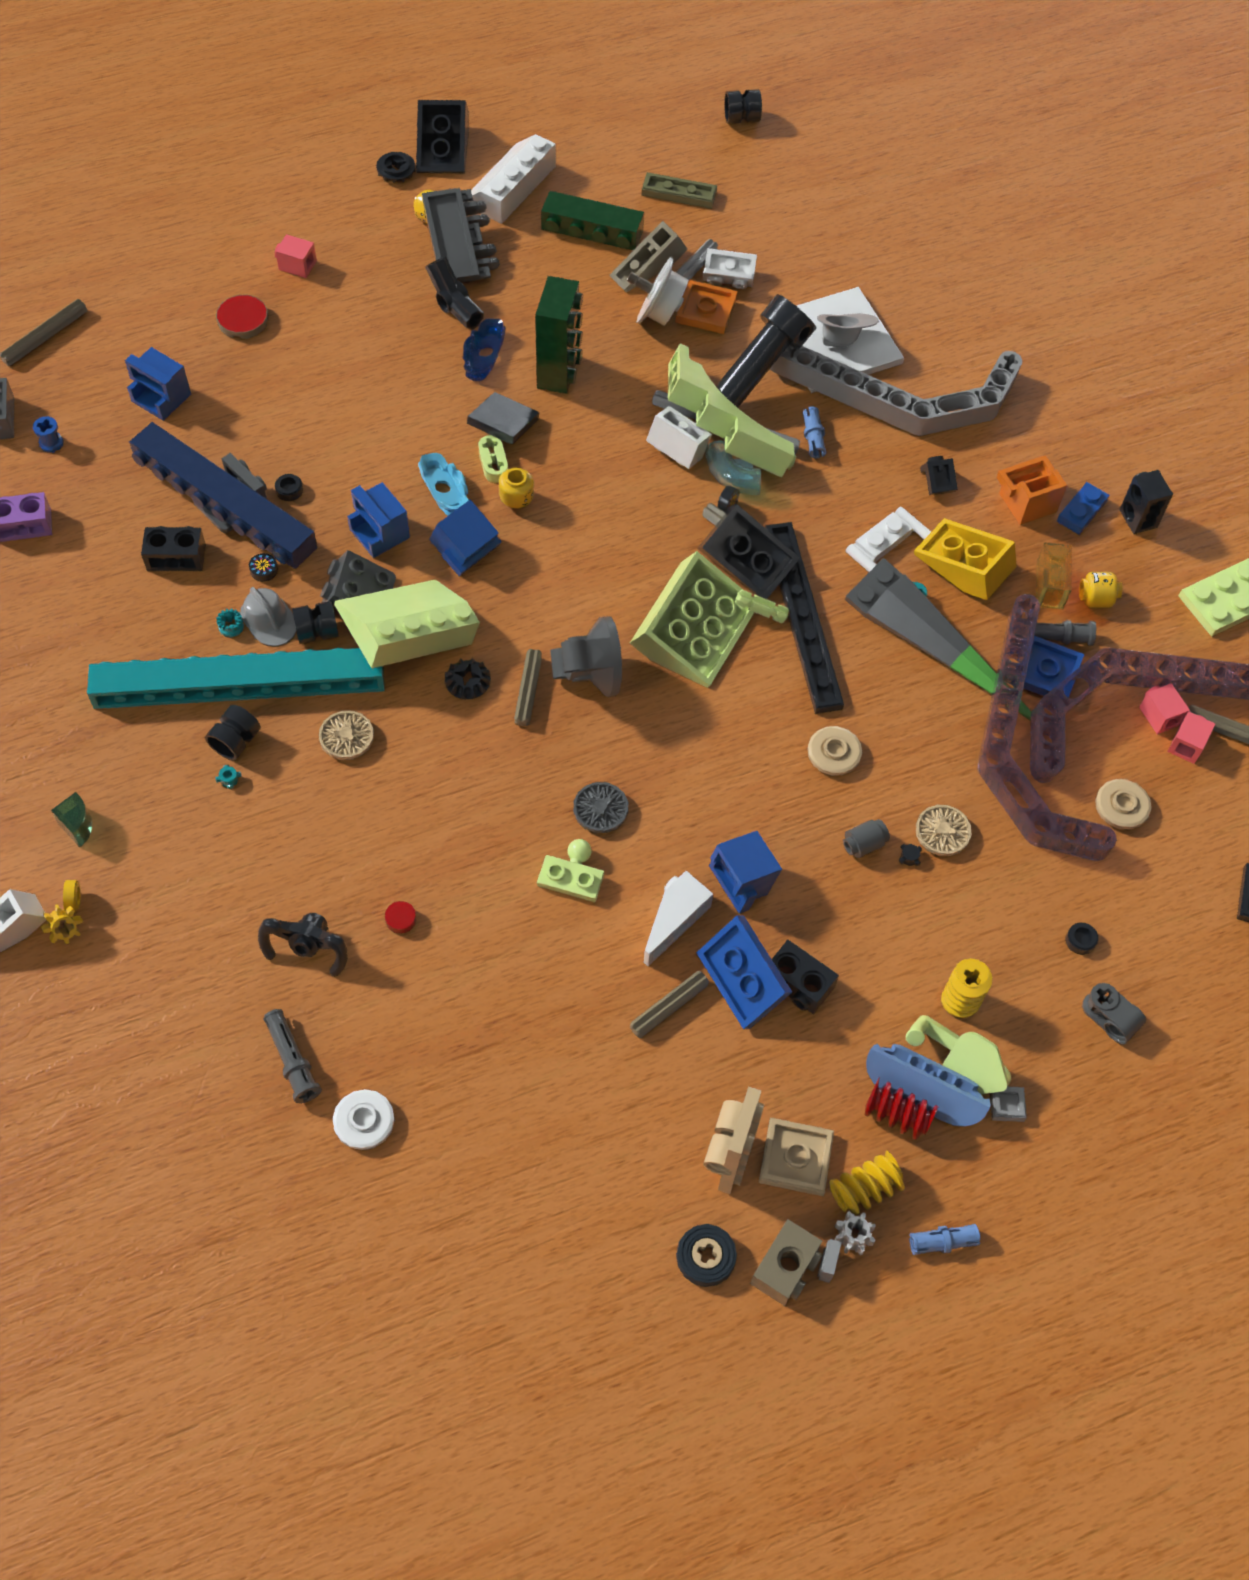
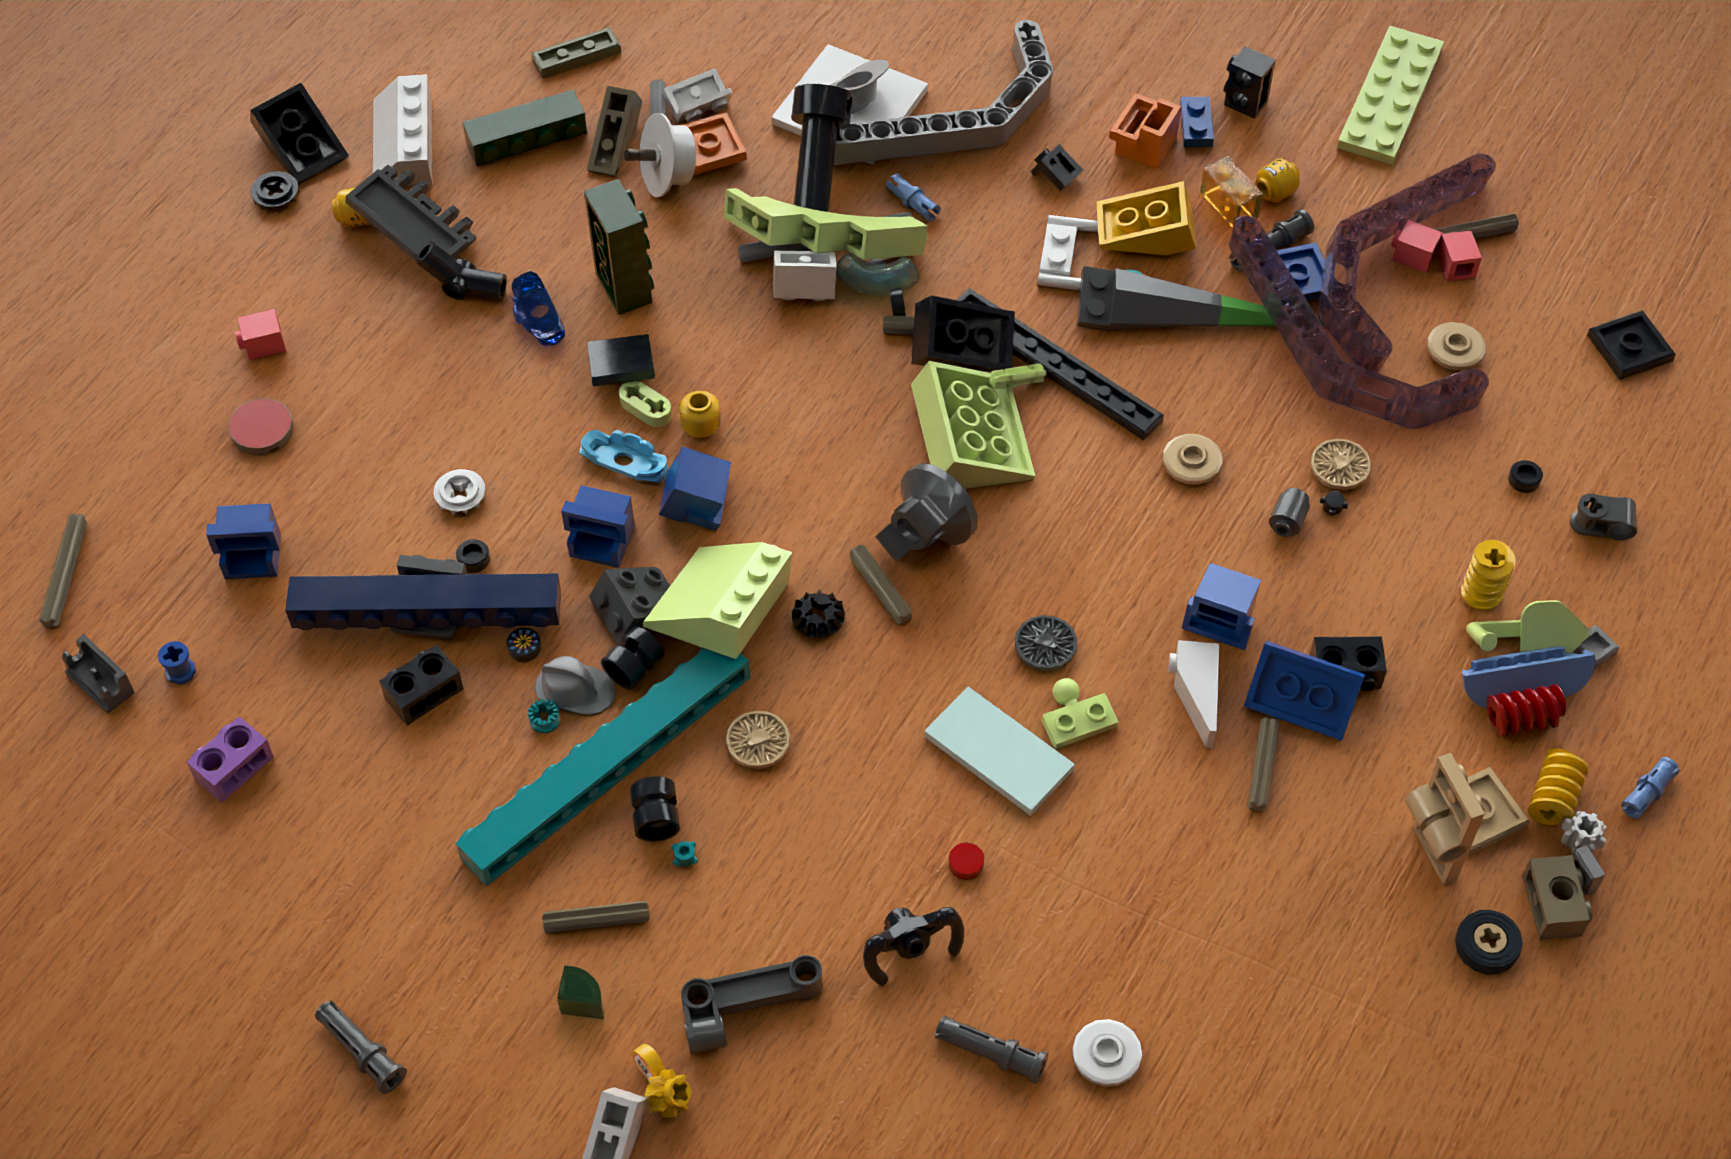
camera: 35 degrees left, 5 degrees down
(127, 898) = (741, 993): none -> dark grey piece
(135, 777) = (595, 916): none -> dark tan axle
(308, 438) = (459, 480): none -> white gear
(496, 859) = (999, 750): none -> light aqua tile

